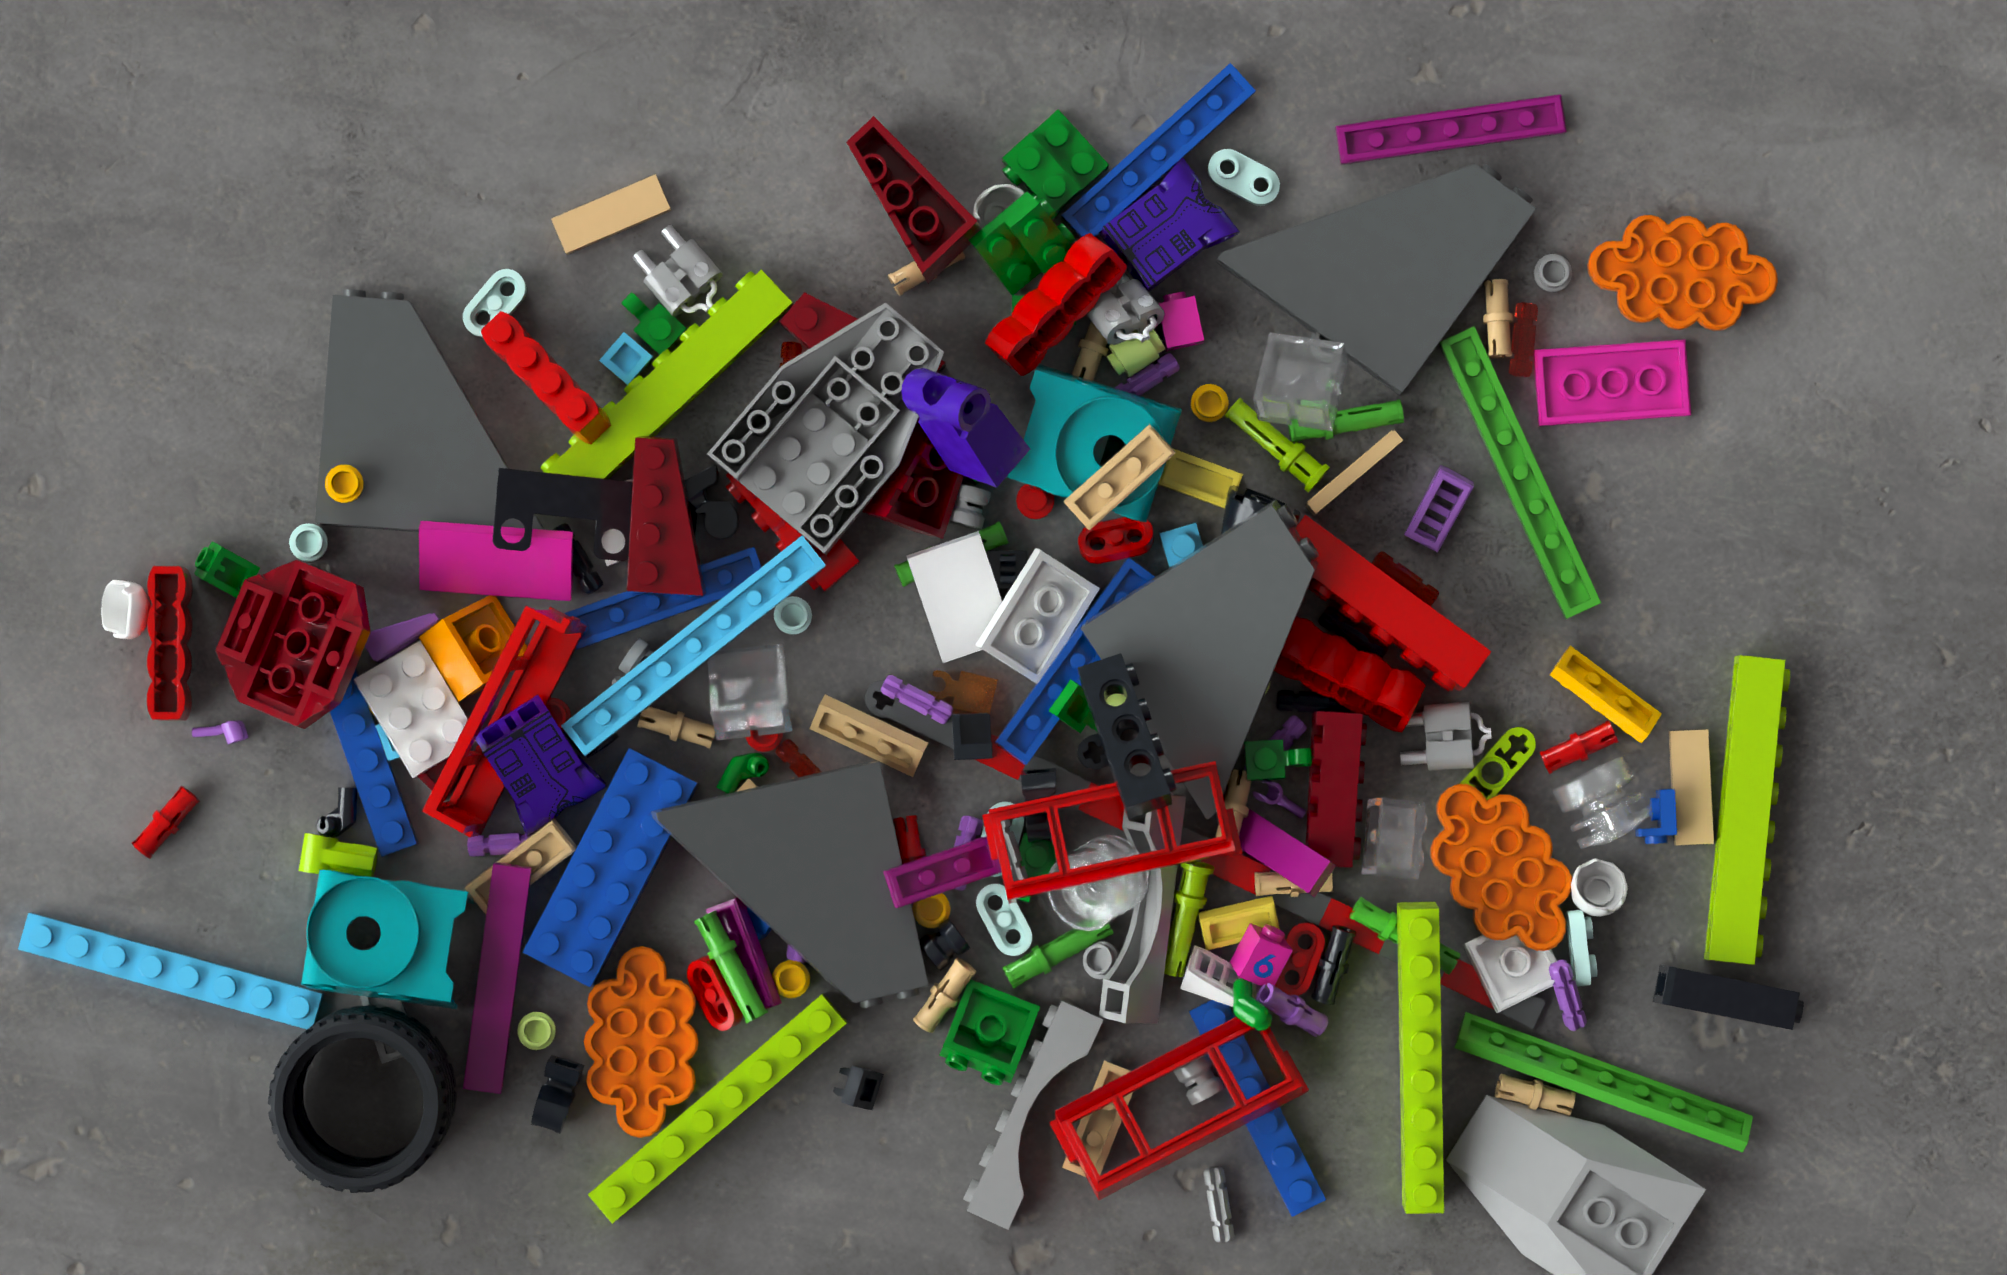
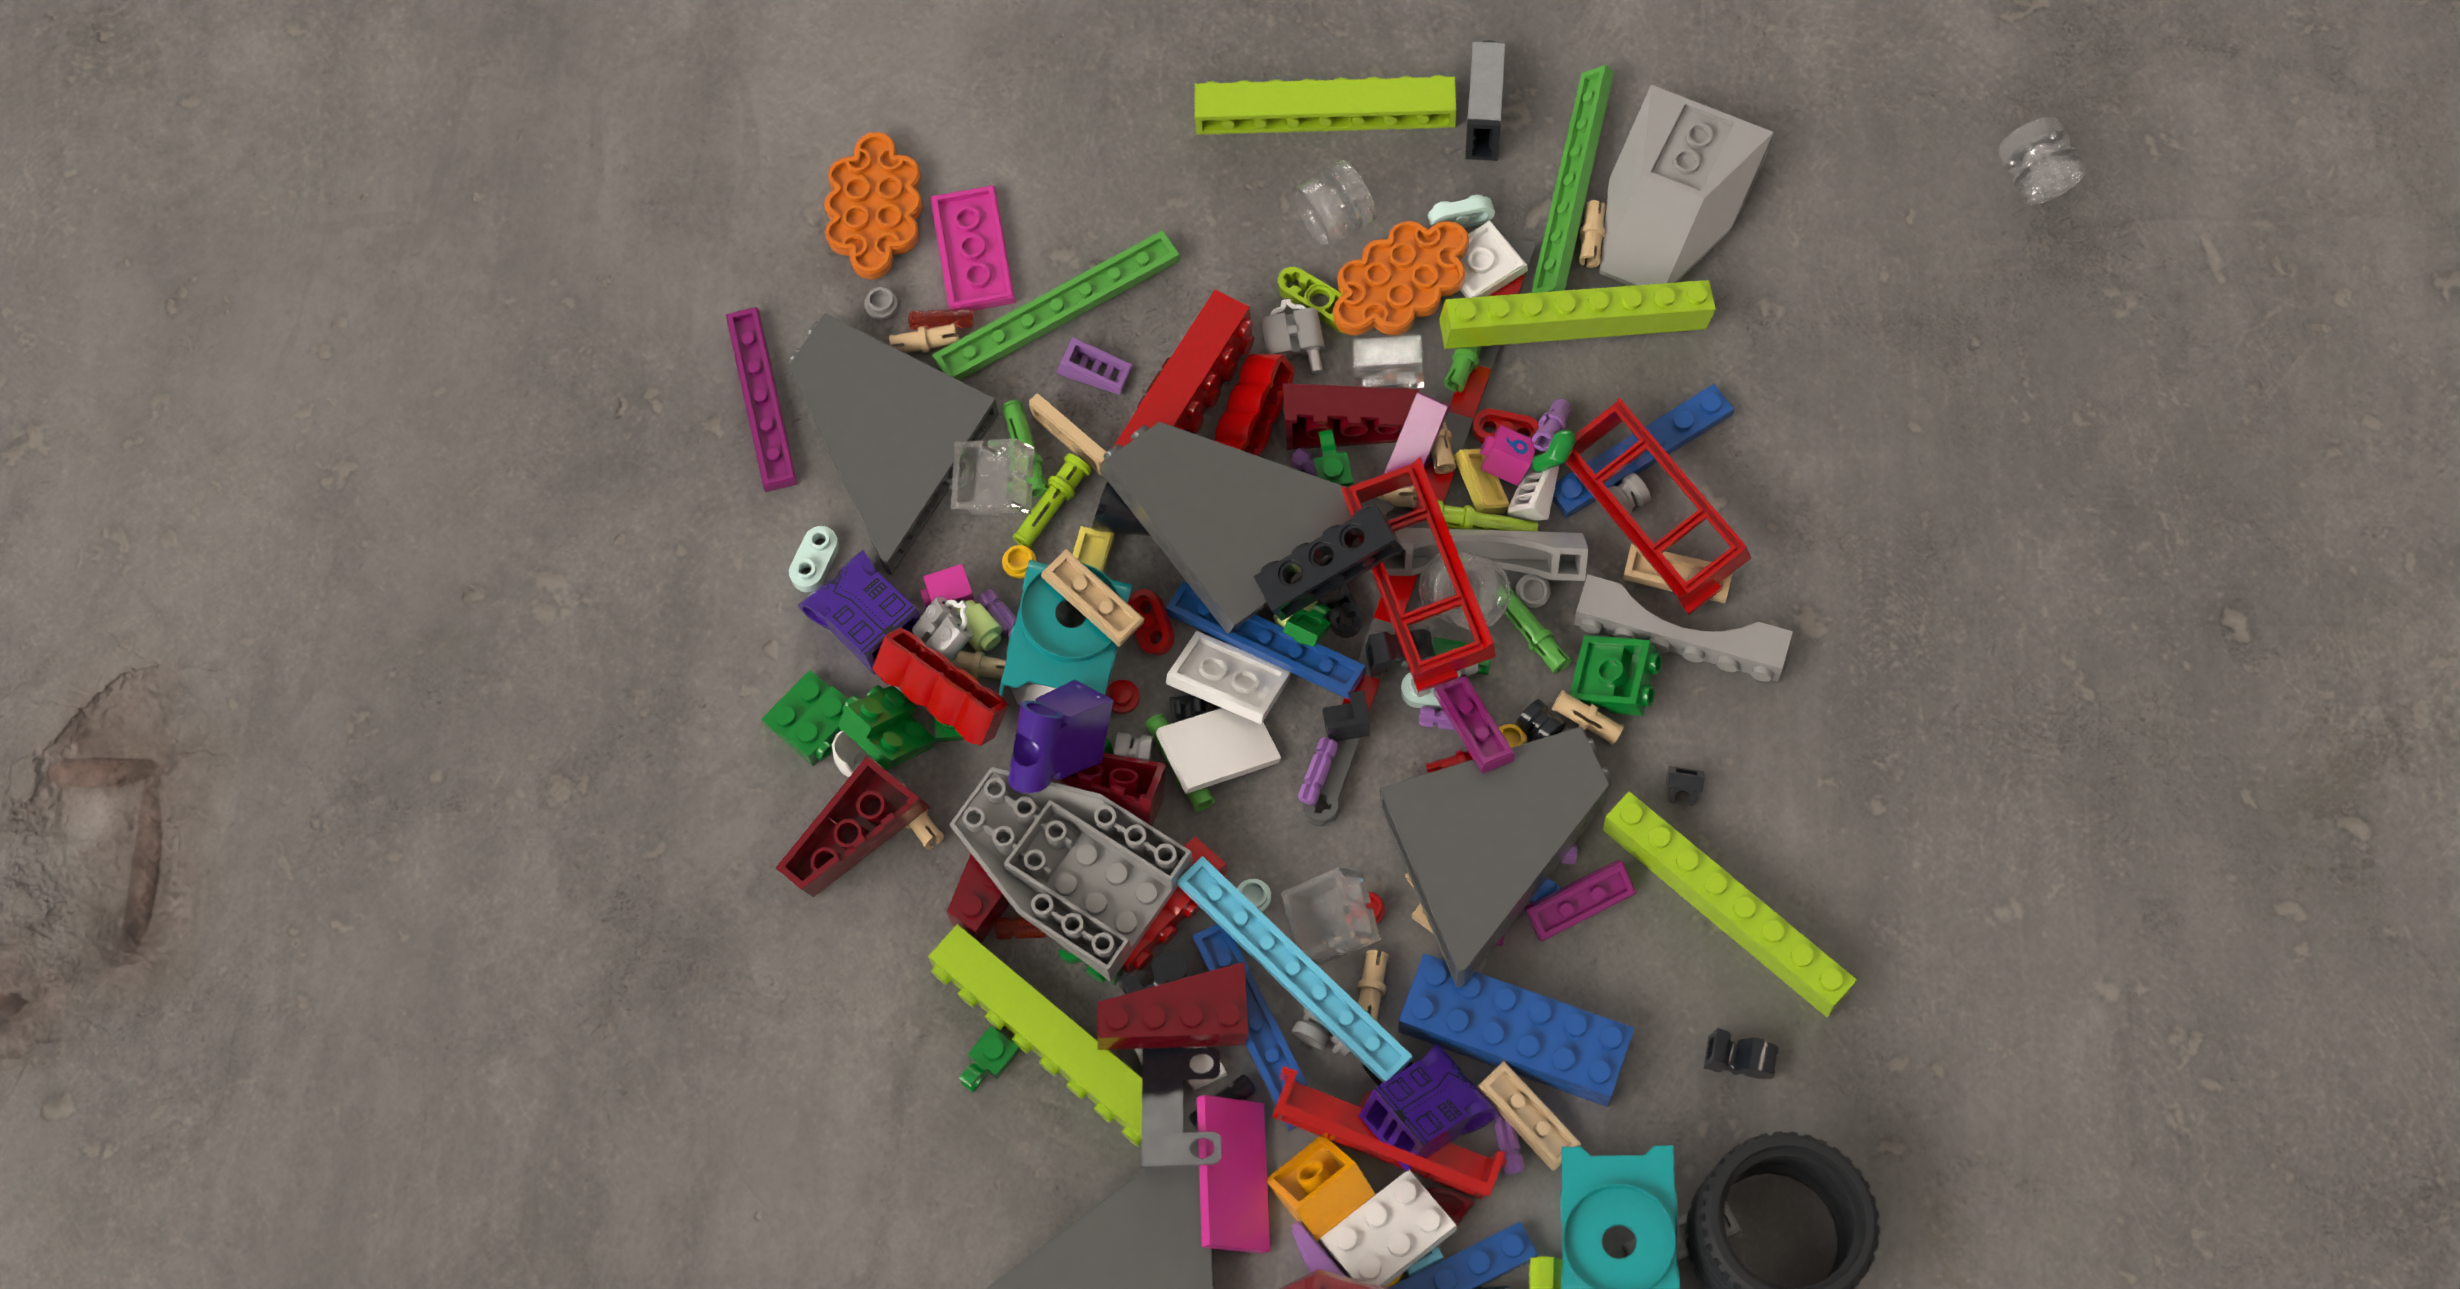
camera: 90 degrees left, 20 degrees down
(491, 300) = (982, 1212): light aqua plate -> none
(497, 978) = (1637, 1123): magenta tile -> none
(536, 1030) = (1683, 1084): yellowish green plate -> none
(545, 377) = (1044, 1152): red brick -> none
(611, 214) = (886, 1112): tan tile -> none
(626, 358) = (1024, 1078): medium azure plate -> none
(641, 1041) = (1677, 984): orange plate -> none
(682, 276) = (941, 1035): light grey piece -> none
(713, 994) = (1617, 921): red plate -> none
(730, 966) = (1580, 913): bright green pin -> none
(740, 768) = (1403, 926): green arm -> none
(791, 979) = (1593, 855): yellow plate -> none
(799, 763) = (1390, 874): clear red axle -> none
(868, 735) = (1356, 813): tan plate -> none
(971, 693) = (1304, 733): clear orange plate -> none
(1002, 920) = (1506, 675): light aqua plate -> none
(1159, 152) = (795, 628): blue plate -> none
(1180, 543) = (1151, 569): medium azure plate -> none
(1219, 1204) = (1734, 470): light grey axle -> none
(1276, 796) = (1364, 466): medium lavender hand -> none
(1307, 702) = (1277, 442): black axle -> none
(1333, 964) = (1506, 400): black pin -> none
(1351, 632) = (1211, 420): black axle -> none
(1567, 995) = (1503, 215): medium lavender axle -> none
(1578, 747) = (1288, 235): red pin -> none
(1598, 888) = (1408, 203): white hair -> none
(1605, 694) = (1241, 219): yellow plate -> none
(1664, 813) = (1328, 157): blue bracket -> none
(1692, 786) = (1311, 150): tan tile -> none

